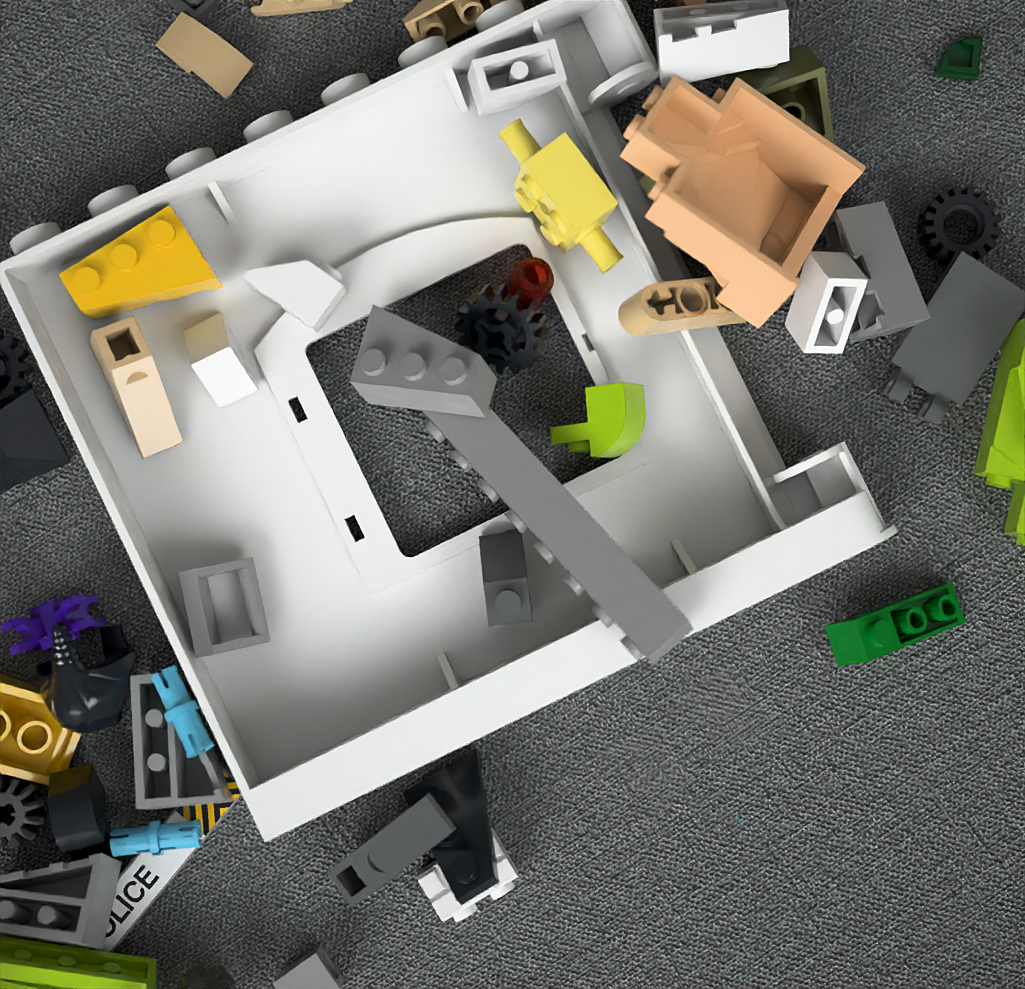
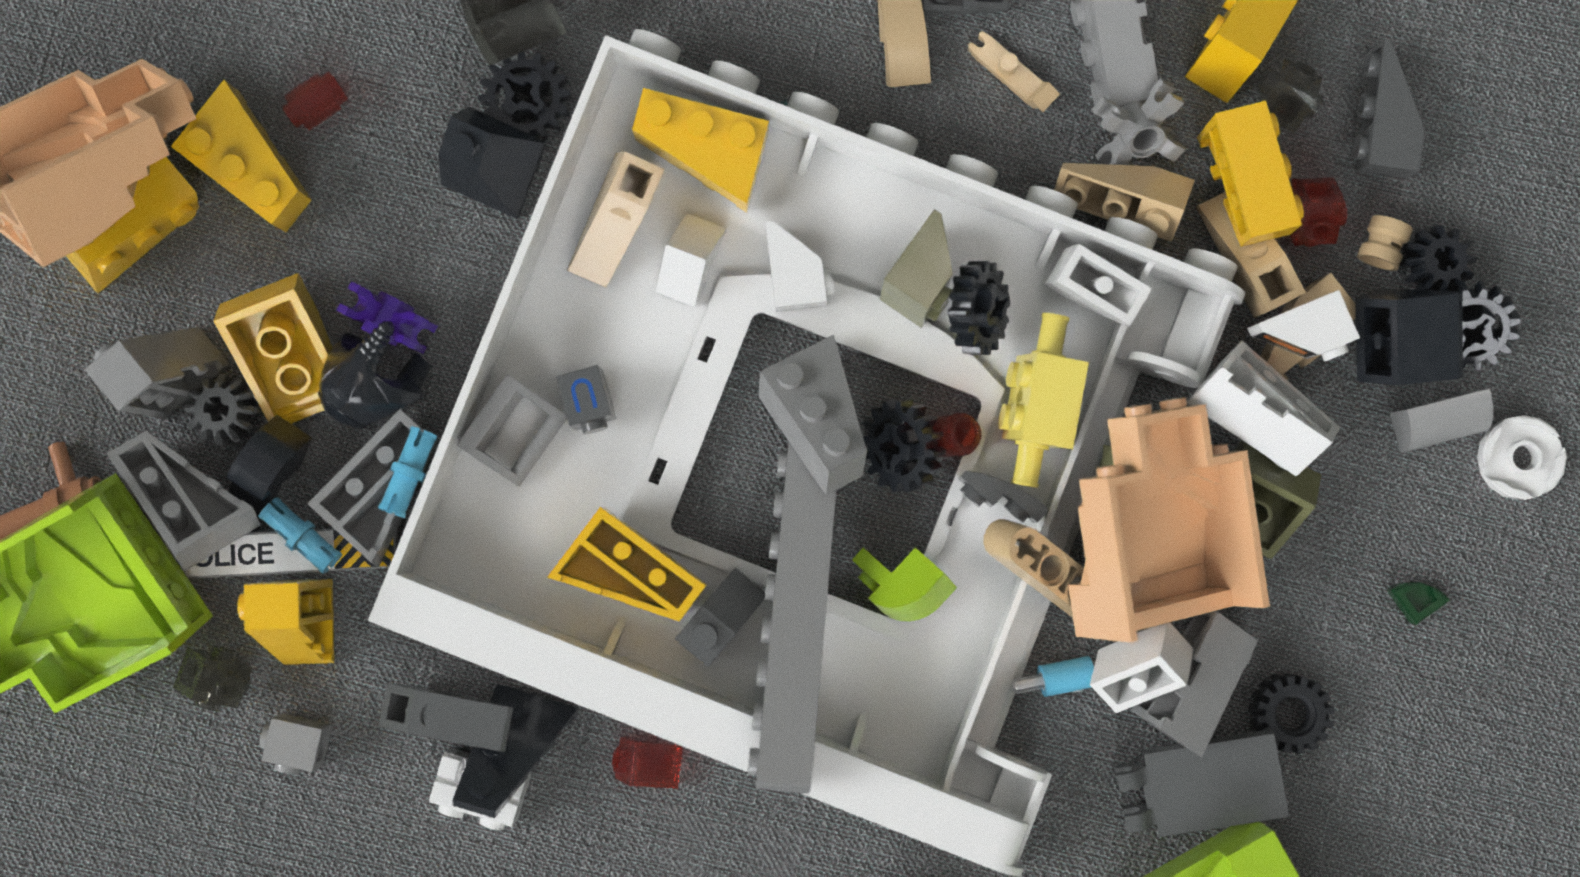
camera: 40 degrees right, 0 degrees up
(212, 901) = (291, 619): none -> yellow wedge
(252, 531) = (586, 399): none -> dark grey brick
(389, 200) = (921, 275): none -> olive slope
(403, 613) = (627, 567): none -> yellow wedge
(451, 178) = (979, 308): none -> black gear
(563, 733) = (647, 763): none -> clear red bracket
(592, 294) = (989, 489): none -> dark grey slope
(778, 372) = (1058, 677): none -> medium azure piece

